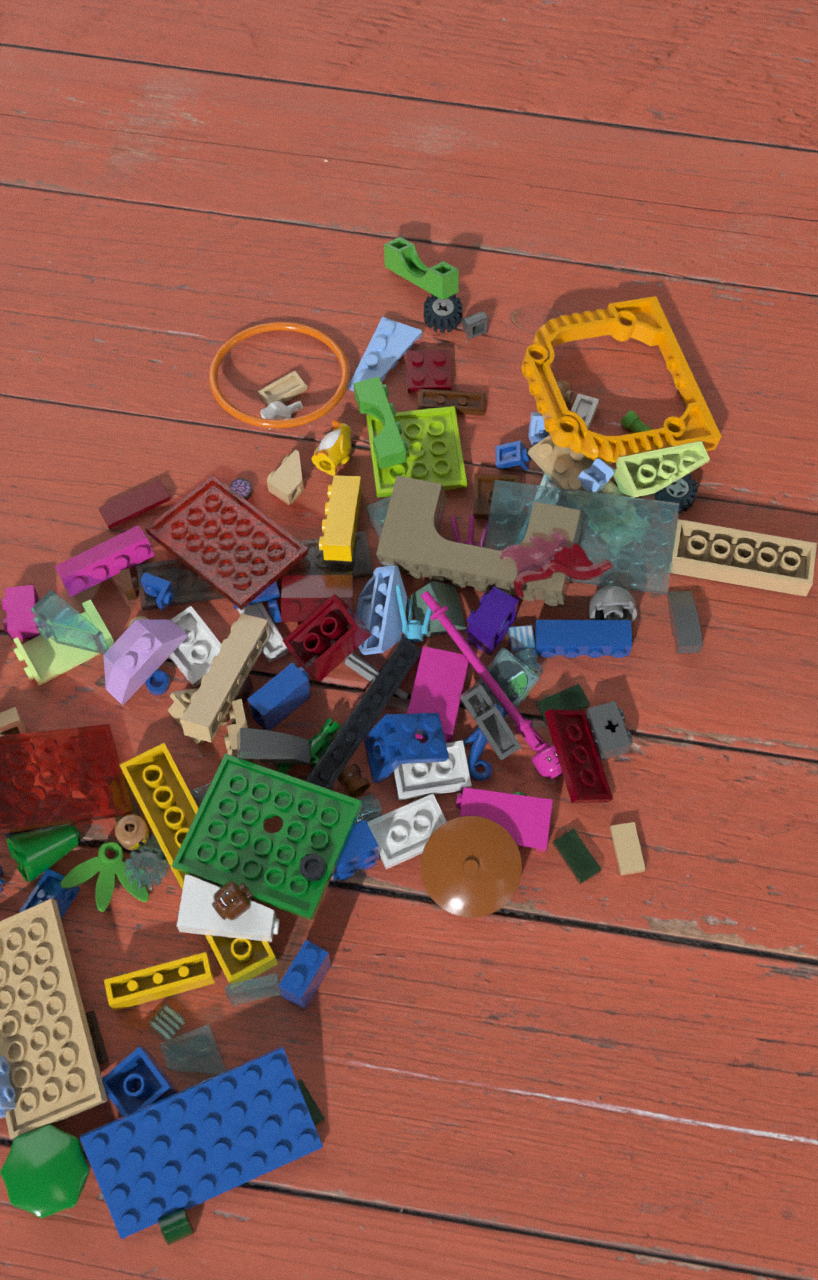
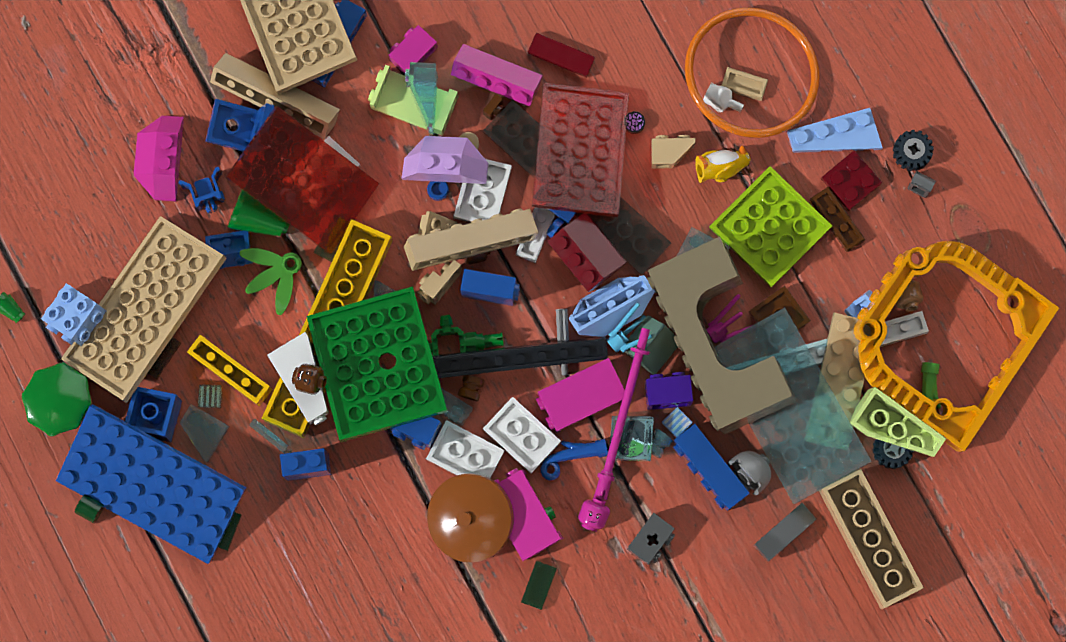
camera: 55 degrees right, 15 degrees up
(132, 832) = (320, 271): medium nougat head -> none
(145, 859) = (305, 301): clear light blue gear -> none
(158, 587) = (501, 130): blue bracket -> none
(272, 747) = (443, 315): dark grey slope -> none
(313, 867) = (373, 414): black tile -> none
(326, 638) = (558, 284): dark red slope -> none
(341, 519) = (665, 218): yellow brick -> none
(372, 400) = (753, 204): bright green arch -> none
(394, 743) = (514, 397): blue bracket -> none
(403, 260) = (929, 126): bright green arch -> none
(489, 721) = (587, 449): dark grey slope -> none
(512, 455) = (824, 302): blue bracket -> none
(549, 558) = (736, 401): piece -> none
(568, 699) = (648, 490): clear green tile -> none
(578, 756) = (612, 532): dark red tile -> none
(596, 476) = (847, 381): light blue bracket -> none
(627, 848) = (572, 616): tan tile -> none

